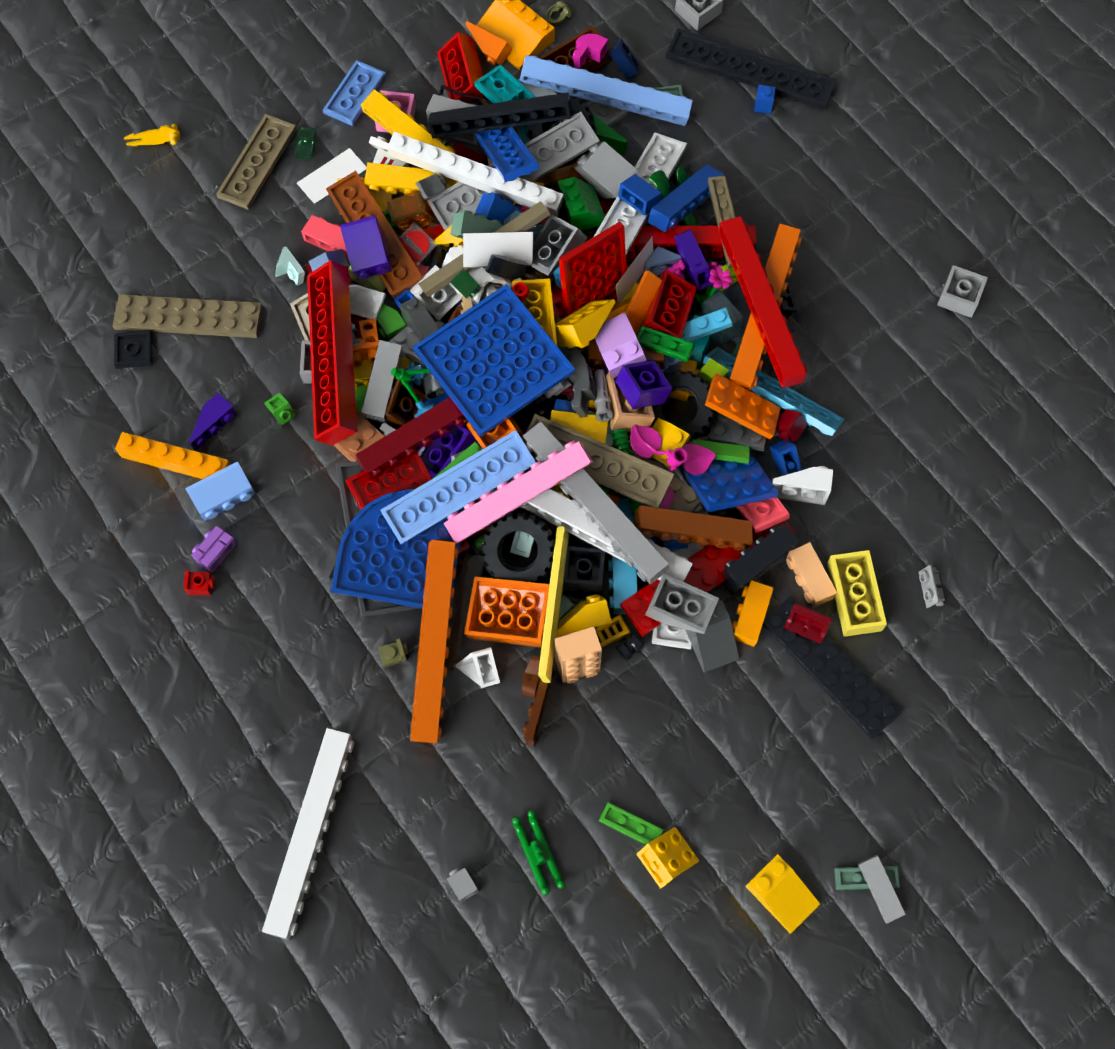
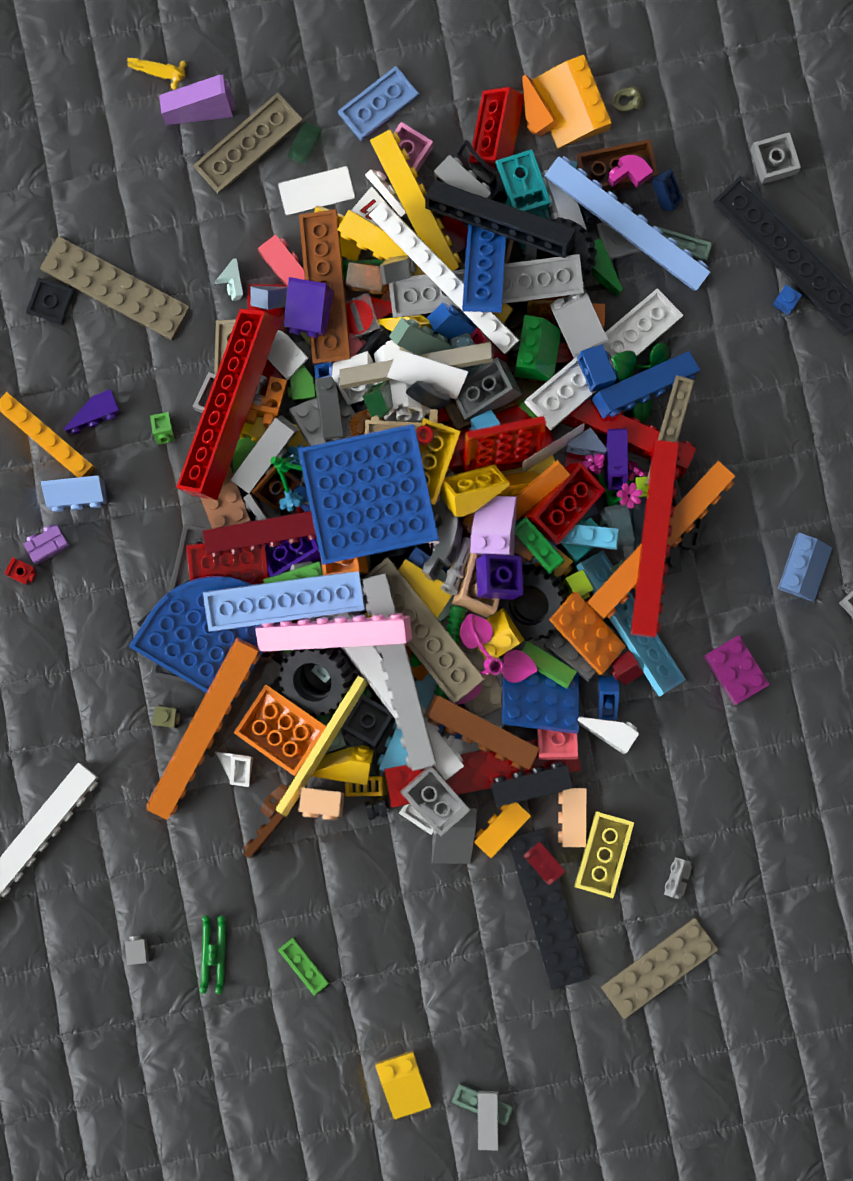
camera: 30 degrees right, 15 degrees up
(200, 138) = (198, 102): none -> medium lavender slope
(667, 857) = (321, 1008): yellow bracket -> none
(883, 391) = (736, 670): none -> magenta brick
(892, 288) = (805, 567): none -> medium blue slope
(959, 675) = (659, 968): none -> dark tan plate

